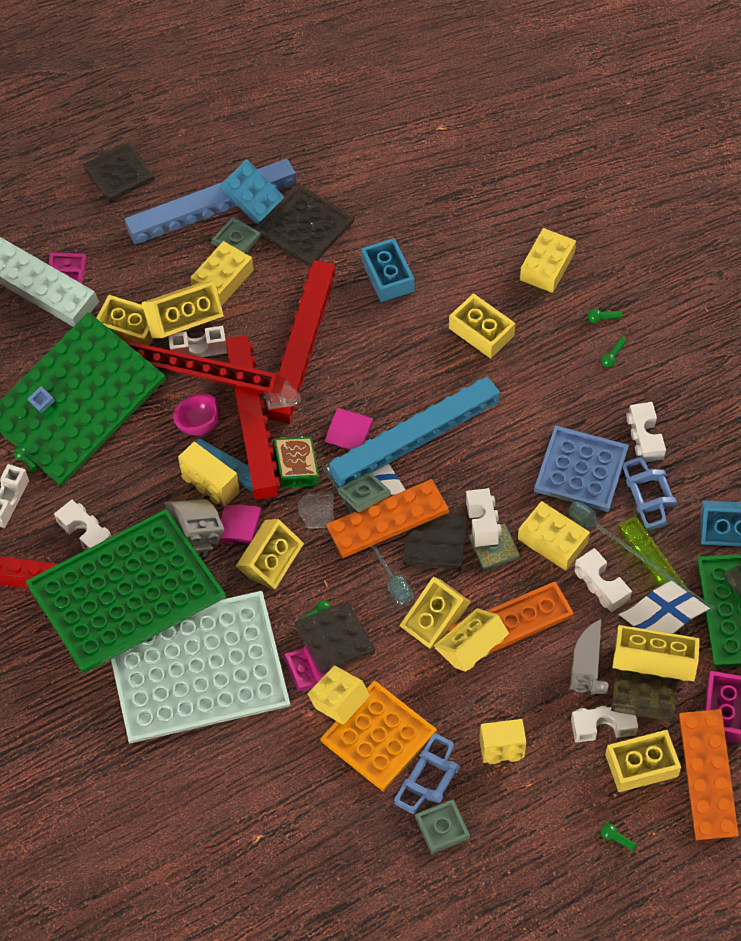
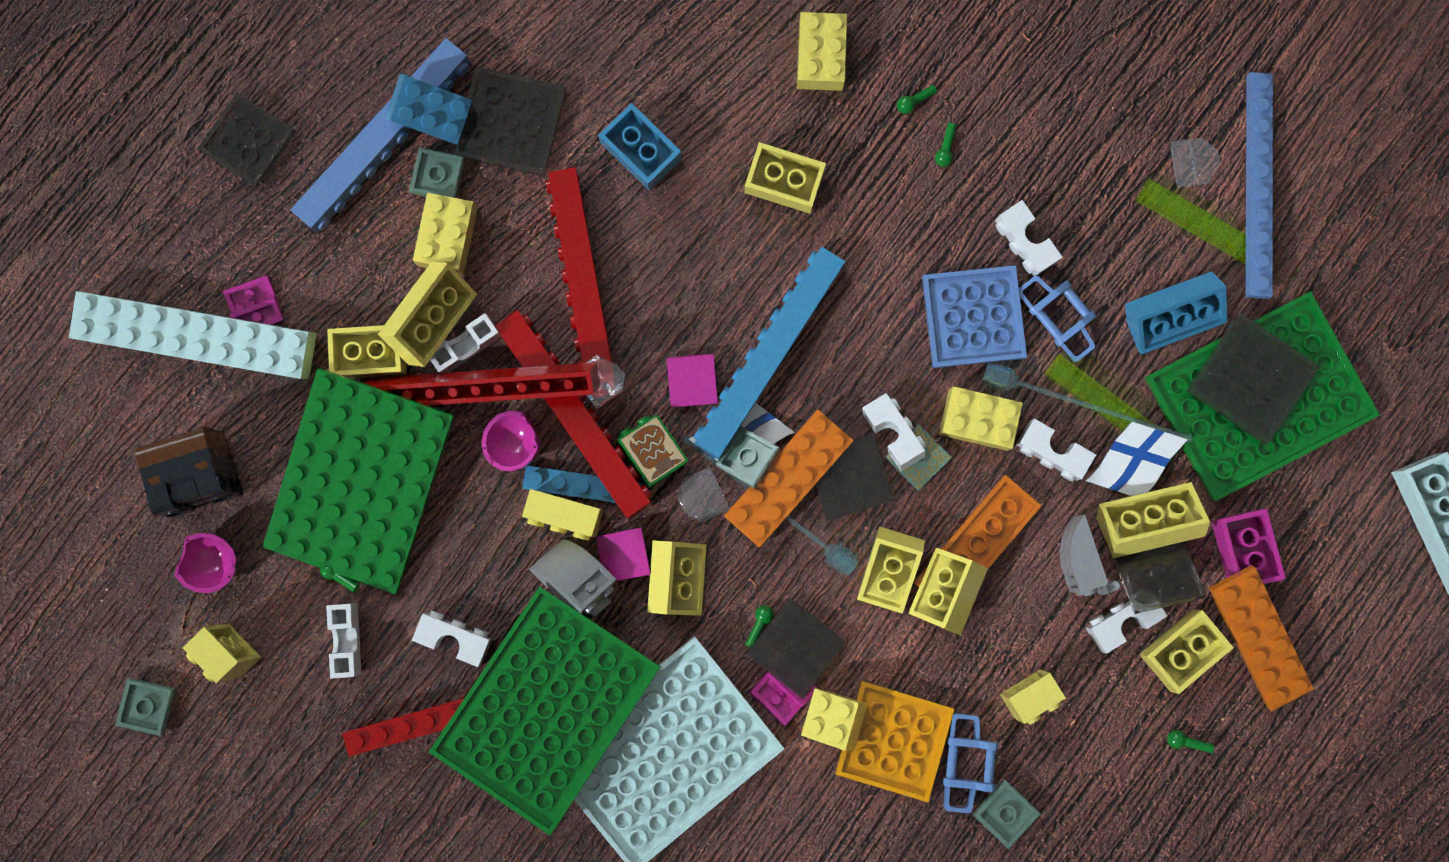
camera: 25 degrees left, 25 degrees up
(41, 399) = (321, 506): medium blue plate -> none

